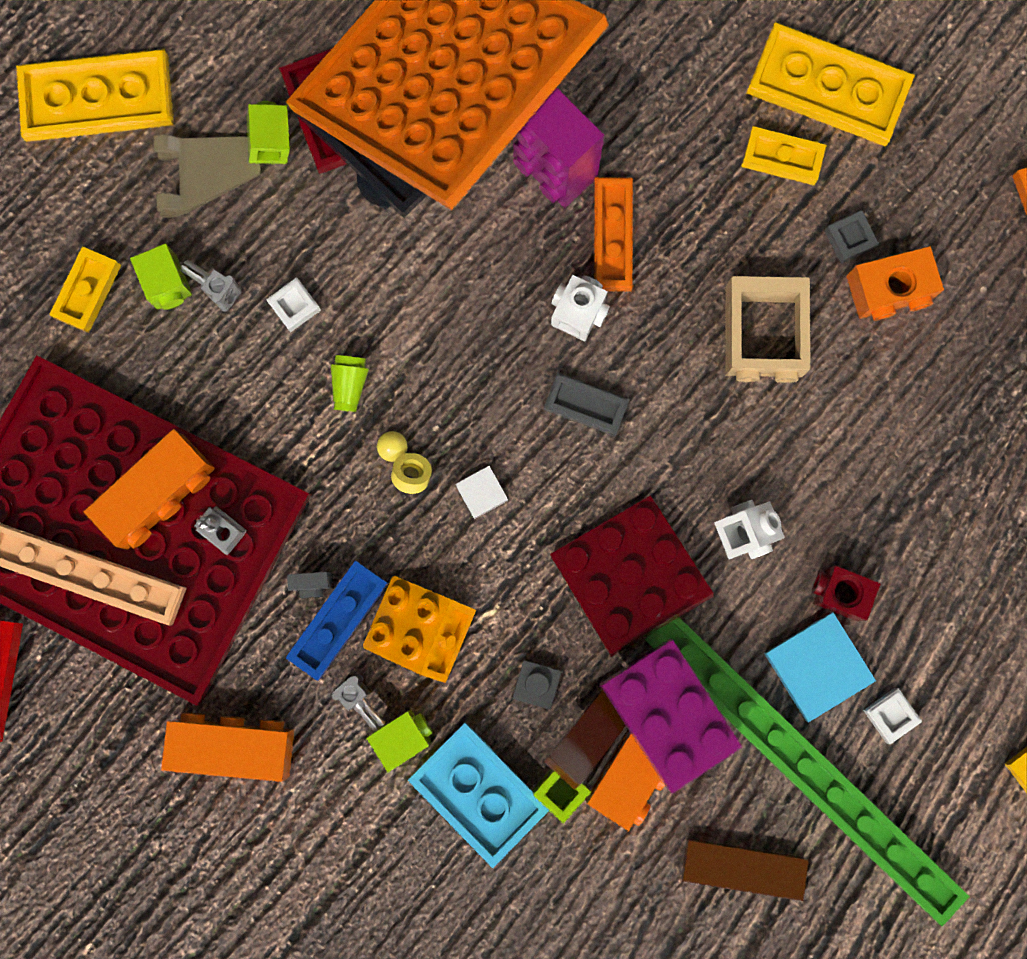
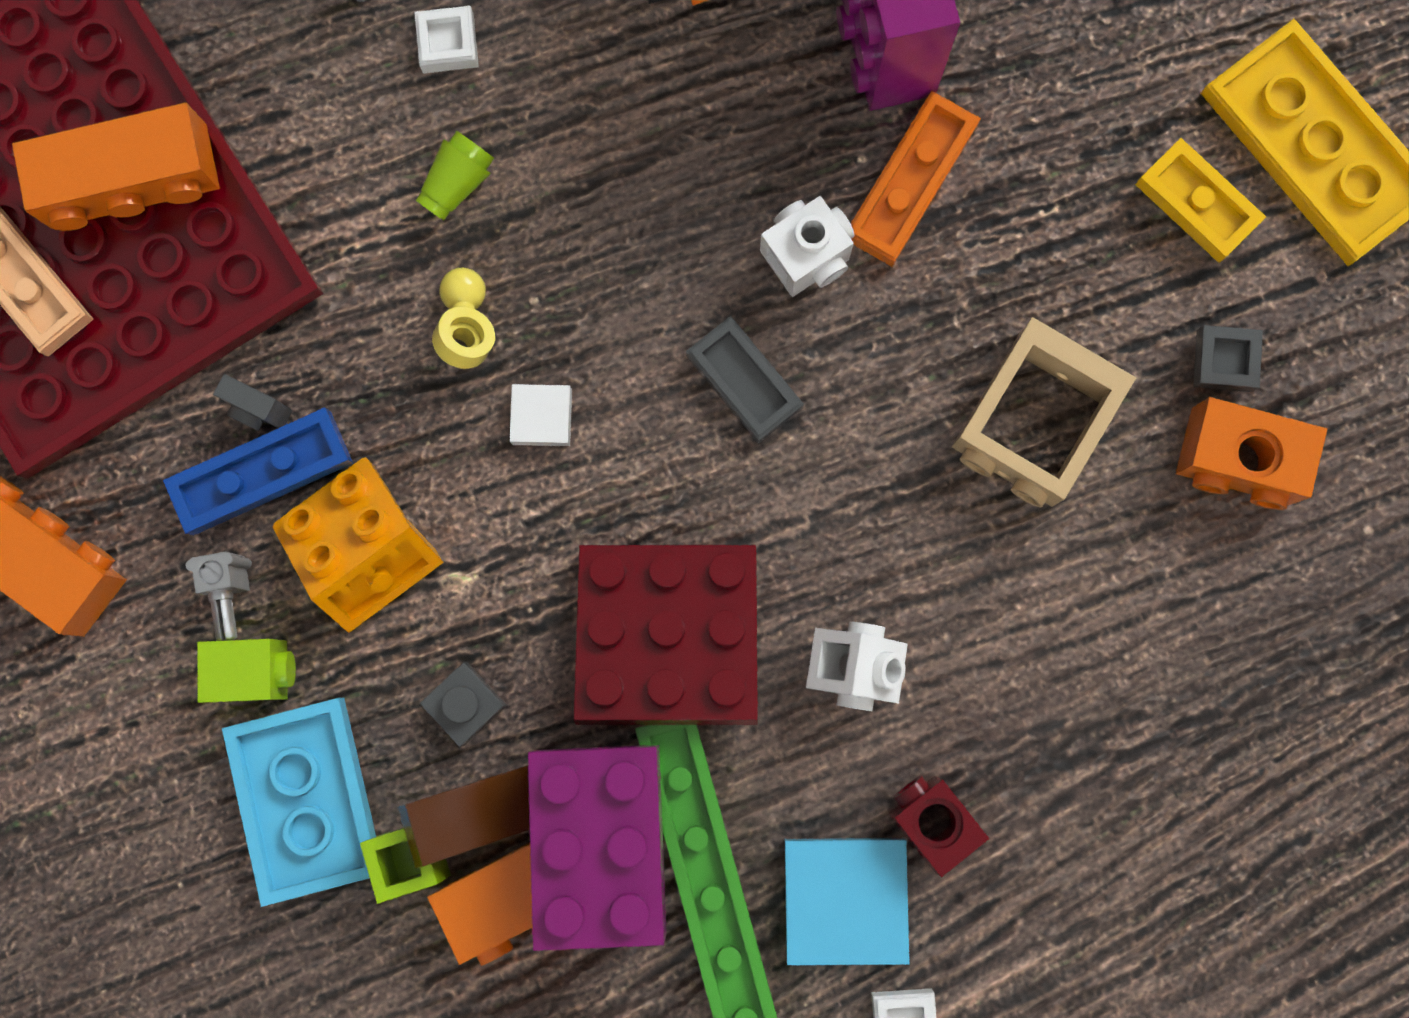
camera: 35 degrees right, 0 degrees up
(212, 525) = (172, 256): light grey piece -> none

